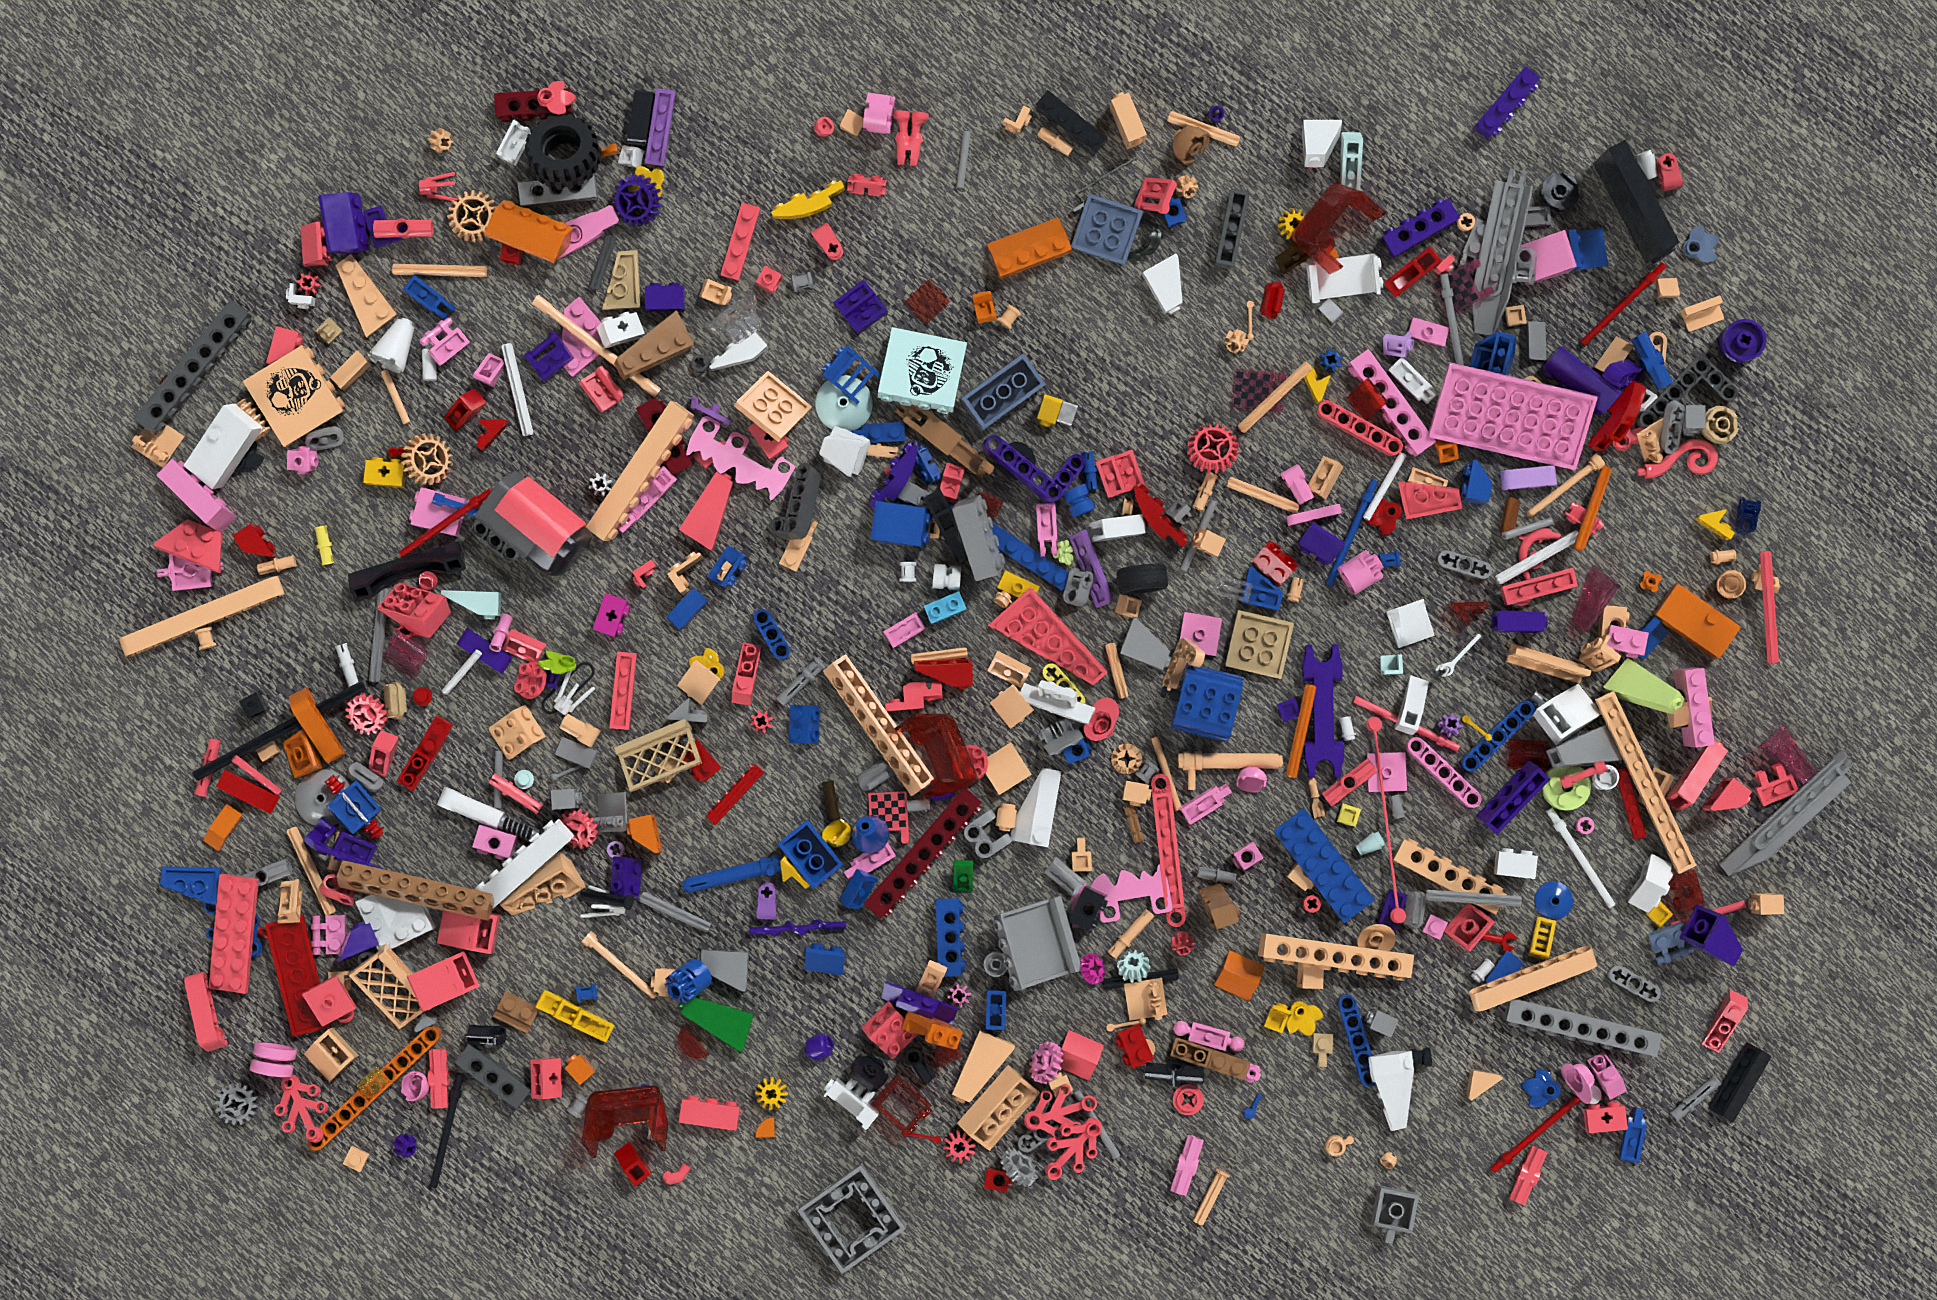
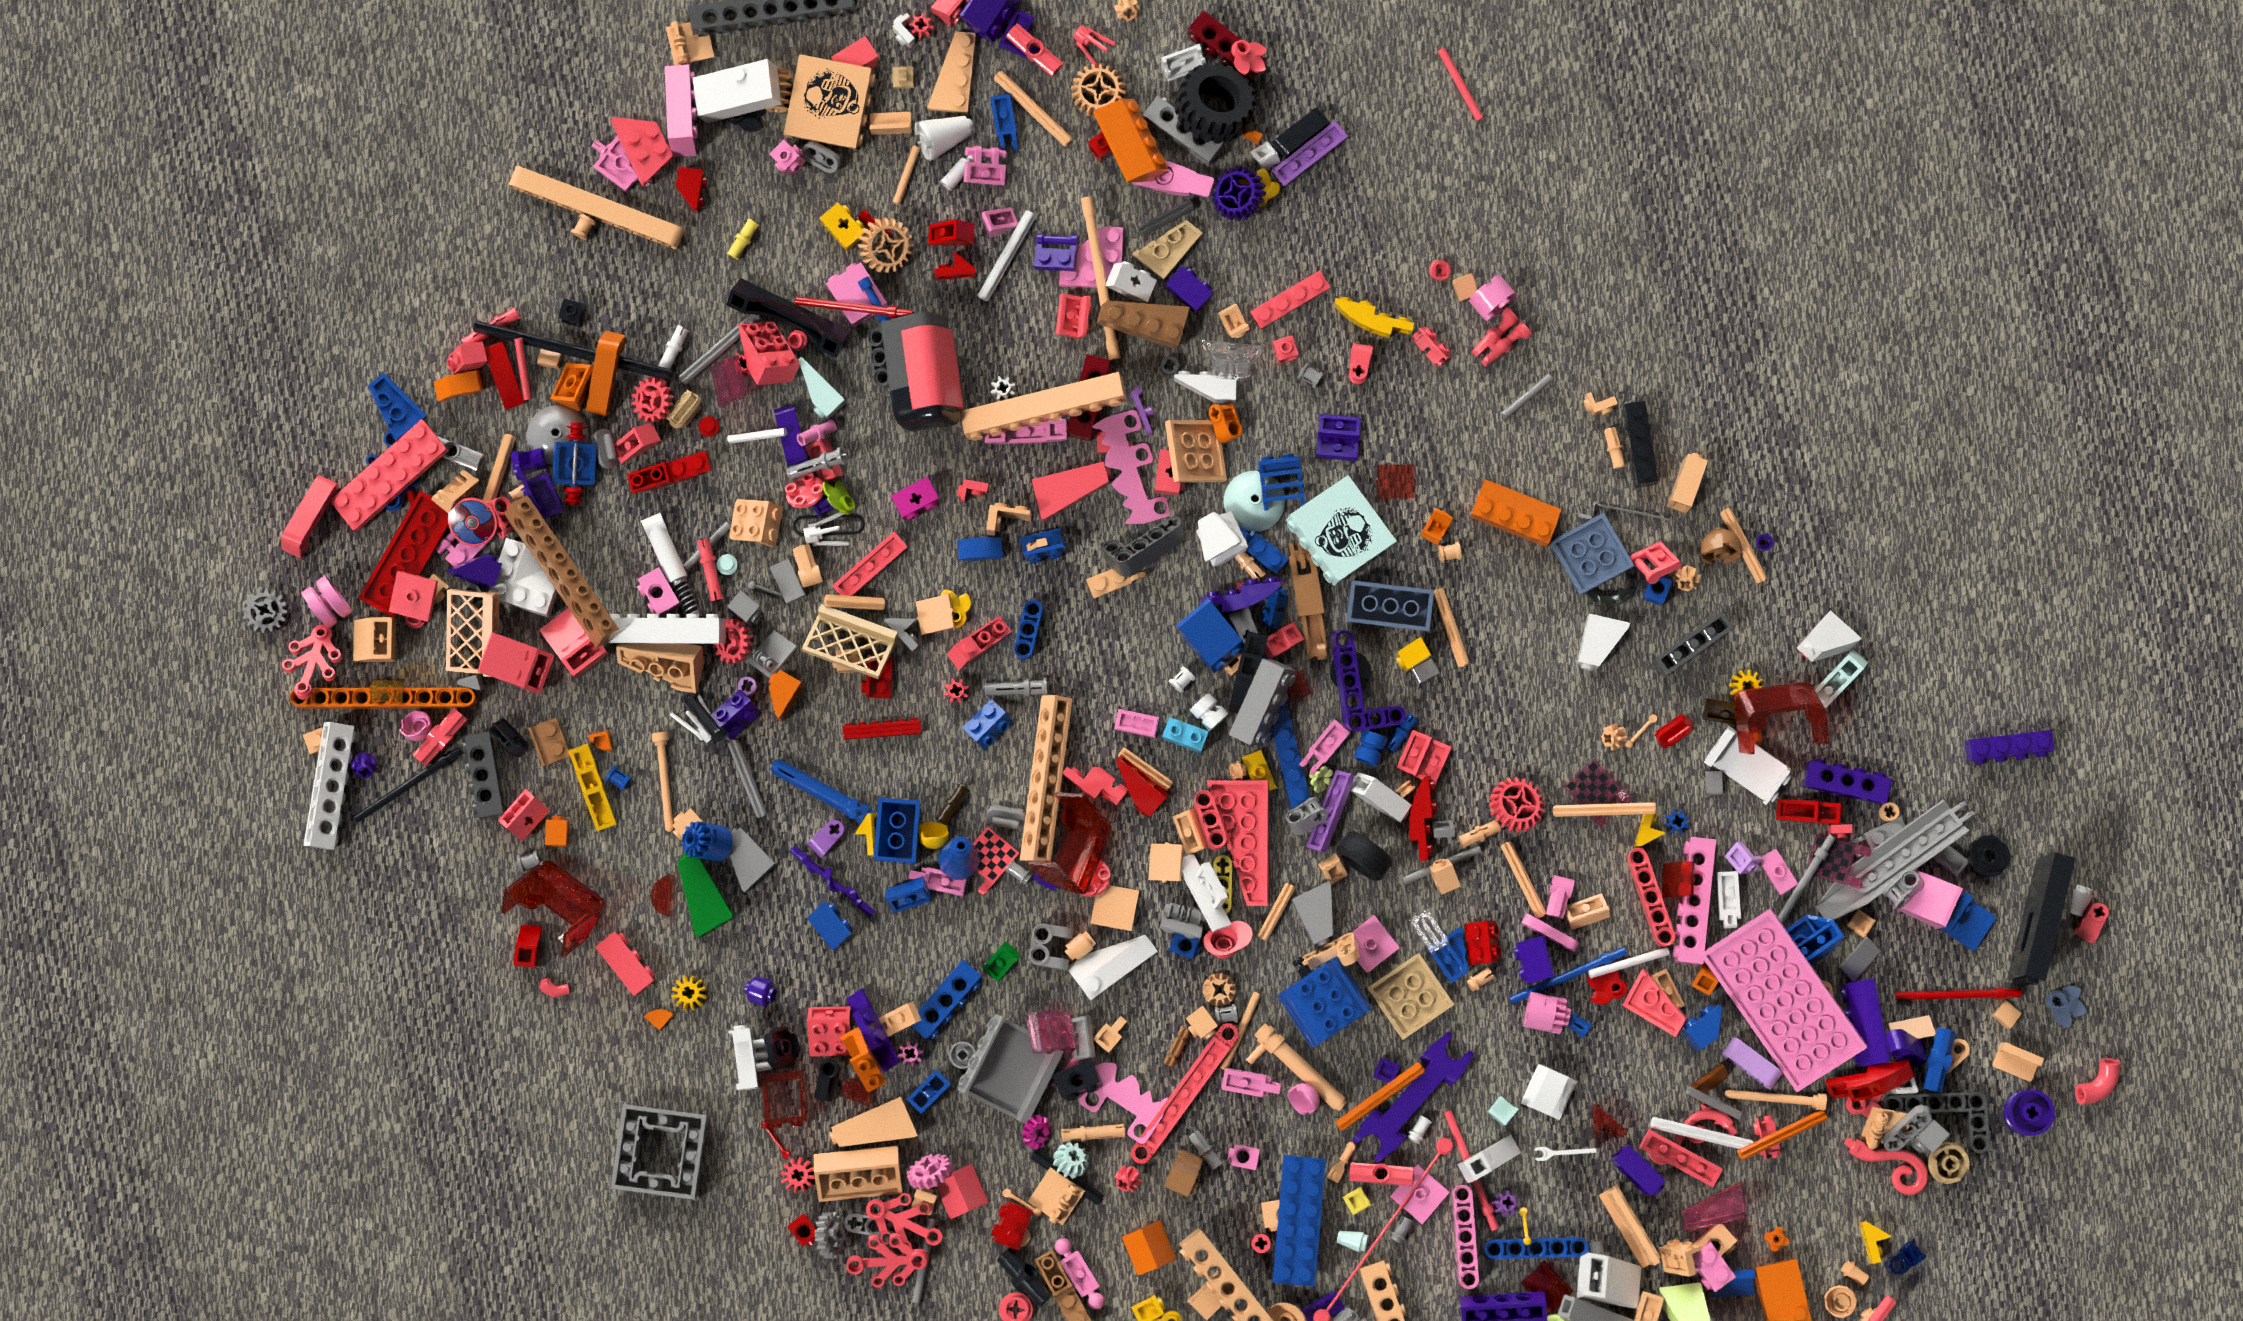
camera: 45 degrees right, 5 degrees down
(210, 803) = (467, 357): none -> coral slope
(276, 565) = (691, 220): light nougat axle -> none
(321, 912) = (472, 521): none -> shield
(383, 1178) = (320, 795): none -> white brick
(525, 646) = (826, 460): none -> light grey pin
(551, 978) = (601, 740): none -> orange tile
(635, 725) = (854, 602): none -> light nougat axle
(775, 367) = (1226, 422): none -> orange piece
(874, 902) = (912, 916): dark red brick -> none
(1010, 642) = (1210, 810): none -> coral beam
(1040, 892) = (1051, 1031): none -> clear pink slope
(1057, 368) = (1451, 627): none -> light nougat axle
(1476, 573) = (1622, 1074): light grey beam -> none
(1773, 277) = (2103, 1084): none -> coral cylinder

